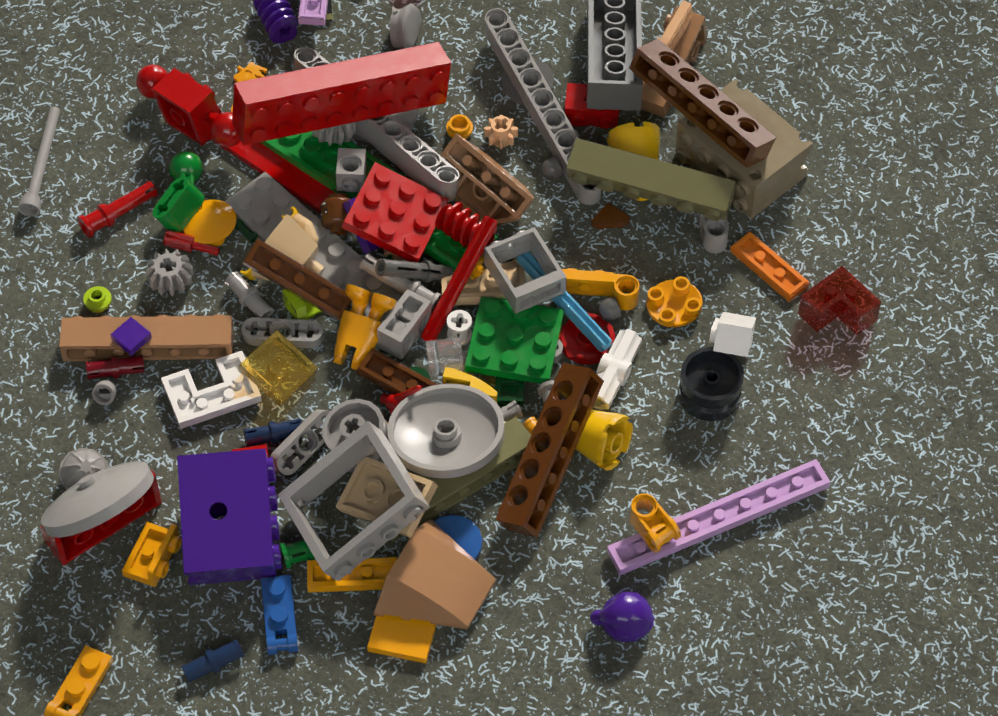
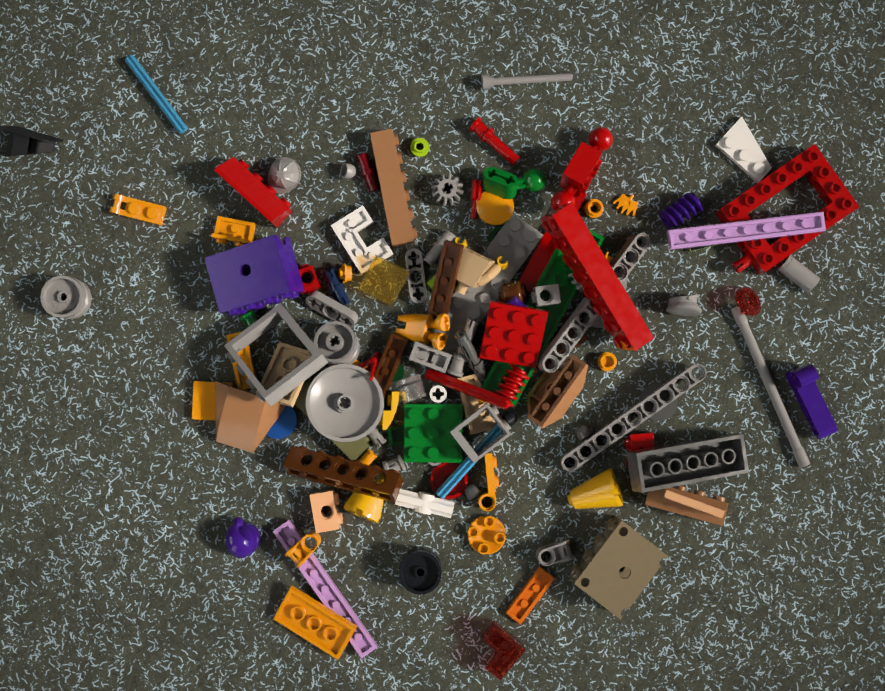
camera: 80 degrees right, 30 degrees up
(97, 498) = (243, 190): light grey dish -> none
(131, 336) = (383, 178): dark purple tile -> none
(212, 661) = (167, 287): dark blue pin -> none
(253, 416) = (345, 273): none -> light orange plate
(279, 614) = (206, 322): blue plate -> none
(501, 131) = (612, 390): light nougat gear -> none
(591, 506) = (321, 521): none -> light nougat brick
(610, 218) = (549, 479): reddish brown tile -> none
(651, 179) = (571, 508): olive brick -> none
(702, 103) = (623, 540): reddish brown brick -> none
(733, 334) = (454, 583): white brick -> none
(767, 535) = (315, 622): none -> light orange tile

